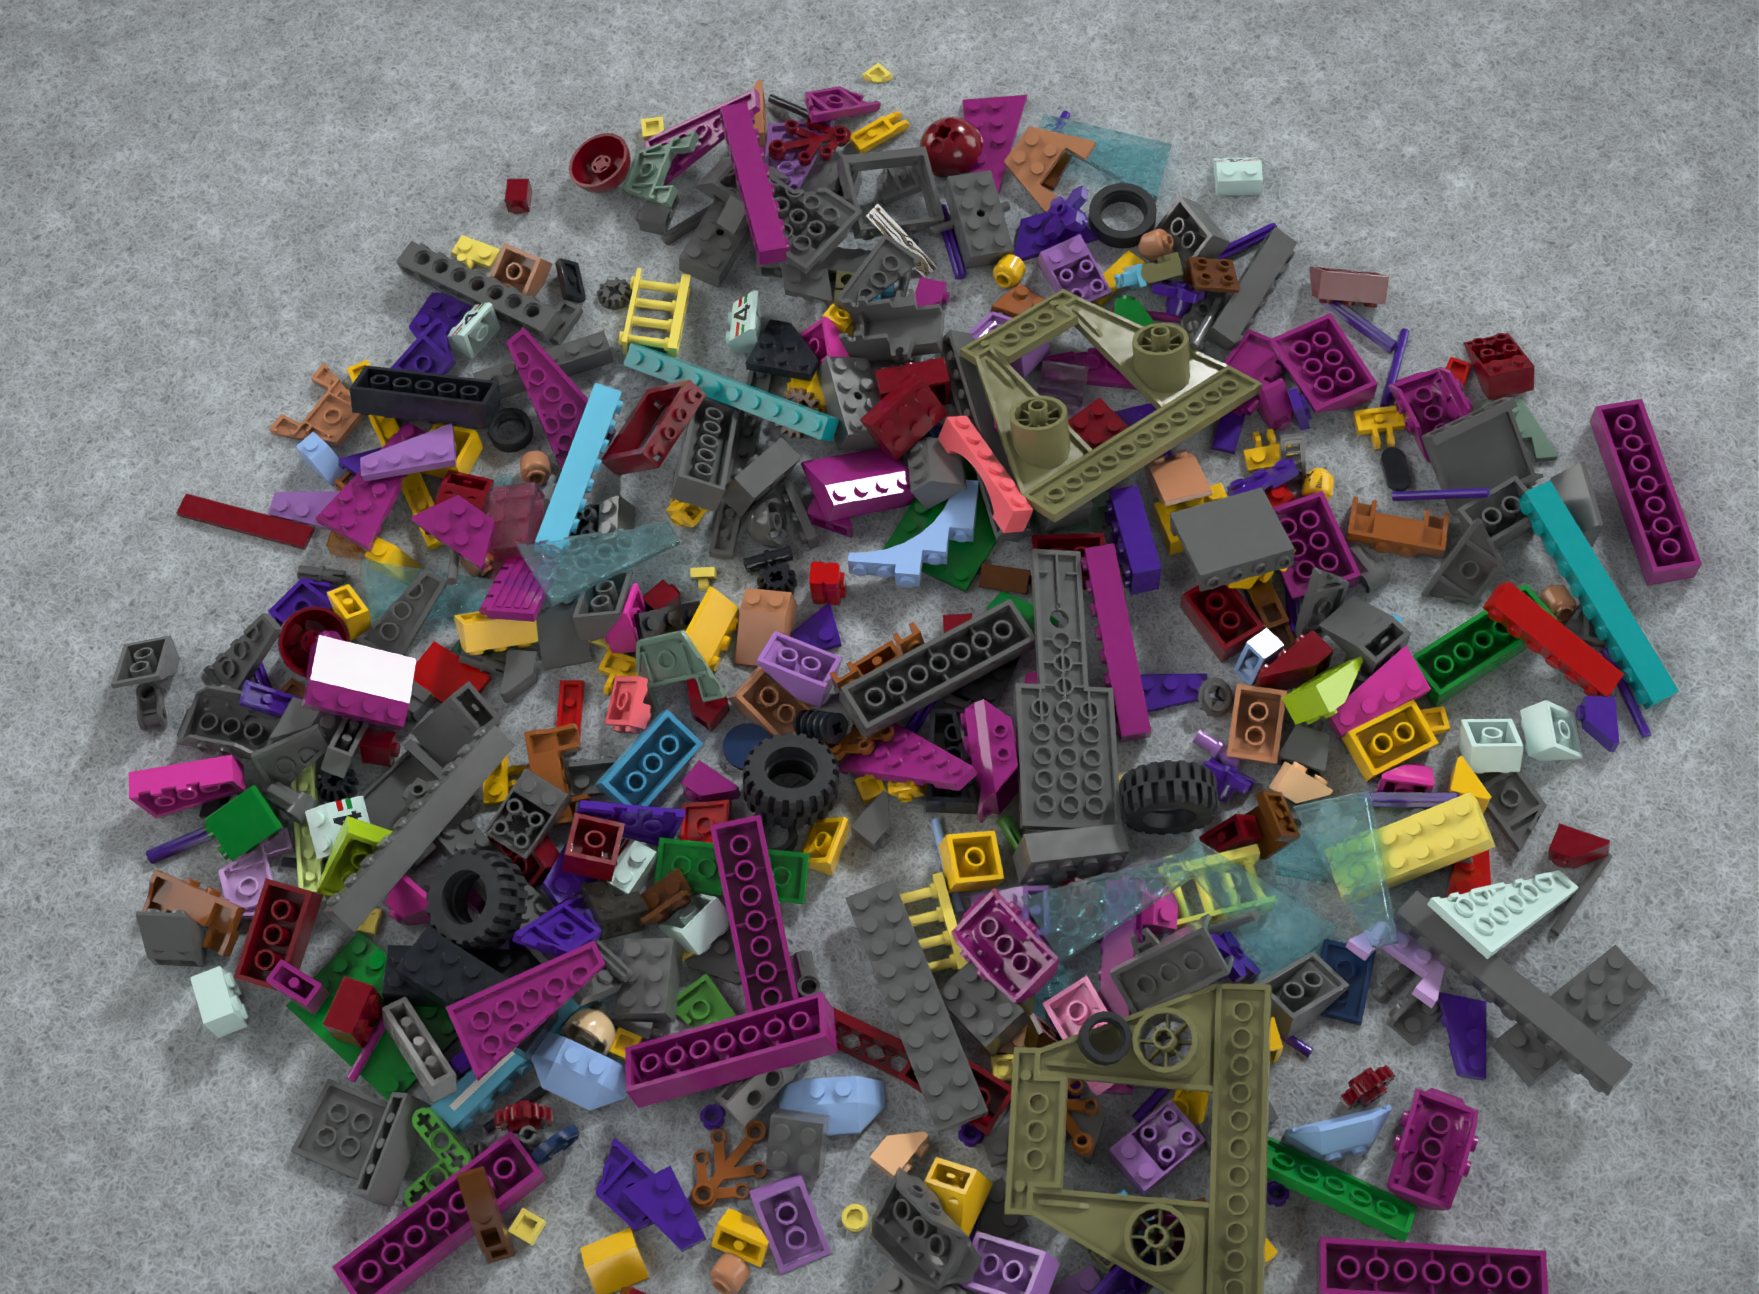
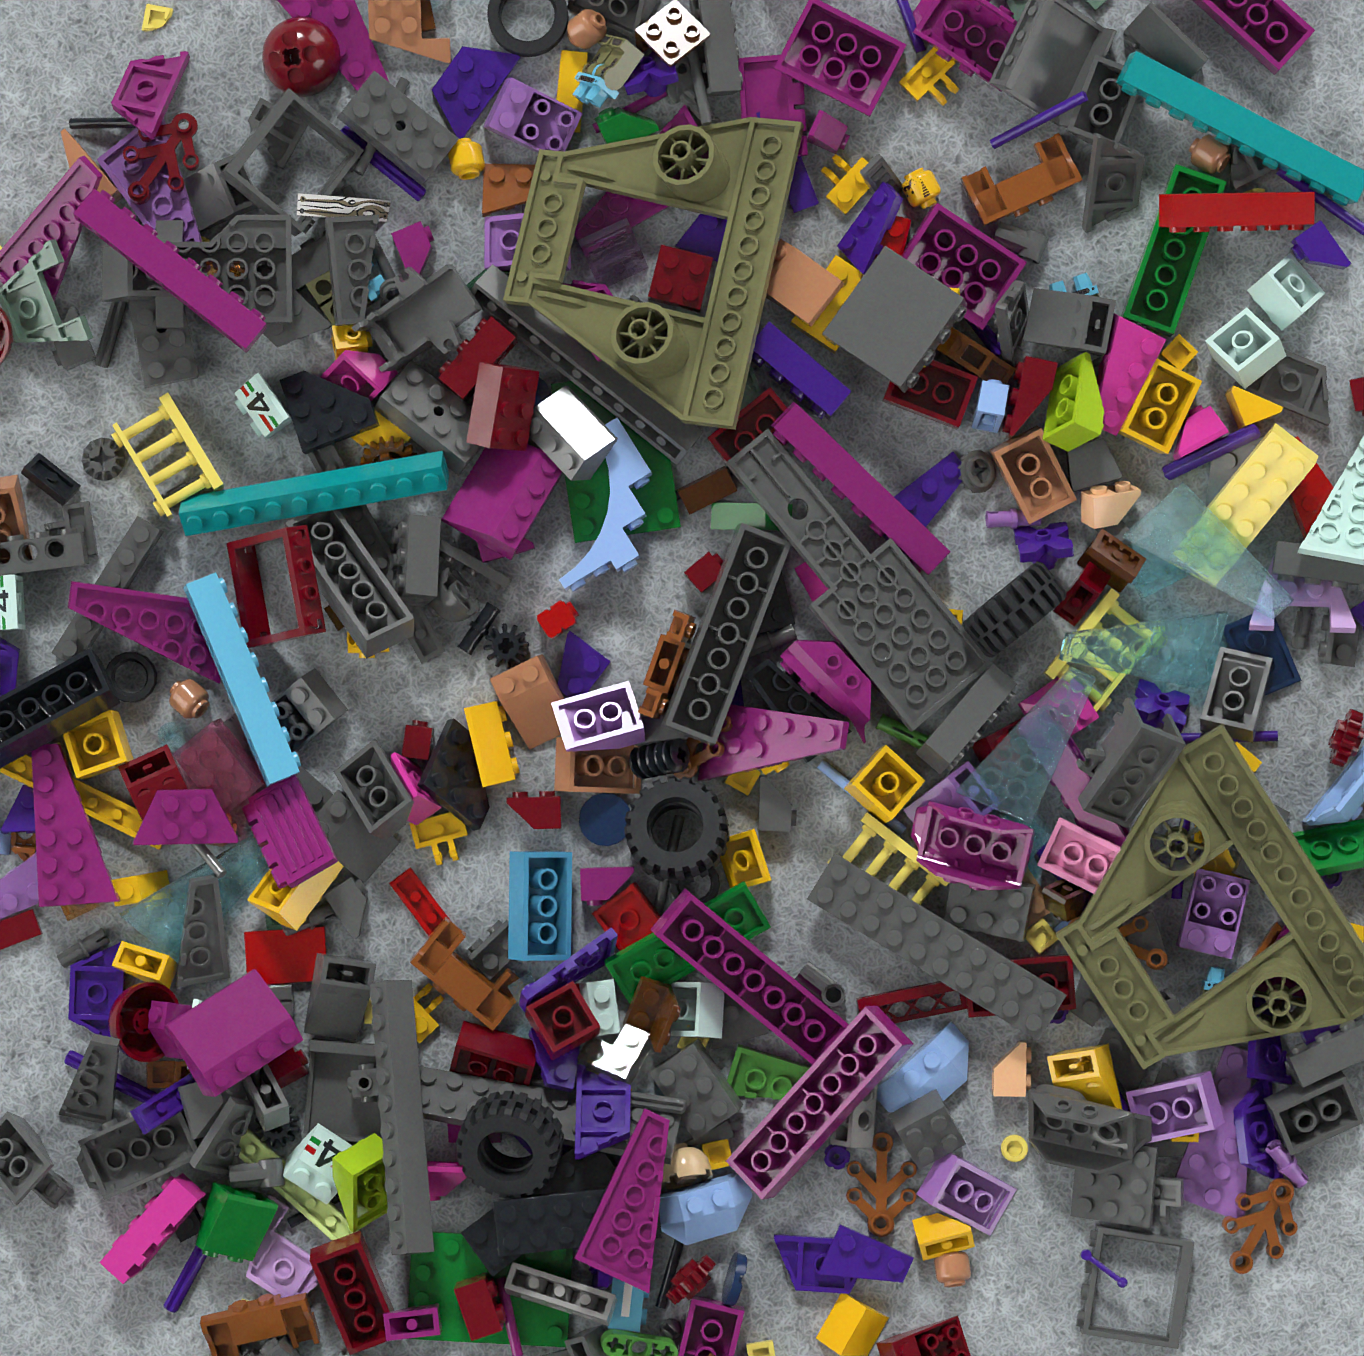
camera: 45 degrees left, 25 degrees up
(414, 455) = (77, 779): medium lavender wing -> none
(527, 814) = (481, 1034): dark grey slope -> none
(532, 1137) = (713, 1289): dark grey axle -> none
(586, 560) = (329, 767): clear light blue wing -> none
(626, 705) = (477, 867): coral plate -> none
(674, 659) = (487, 803): sand green wing -> none
(703, 575) = (434, 689): light yellow tile -> none
(878, 132) = (212, 90): yellow hinge -> none
(1009, 506) = (580, 392): coral arch -> none
(1067, 213) = (482, 60): dark purple plant -> none
(1124, 1031) = (1144, 880): black tyre -> none
(1233, 922) = (1138, 683): dark grey bar -> none
(1300, 408) = (849, 118): dark purple wing -> none
(1395, 469) = (975, 114): black tile -> none

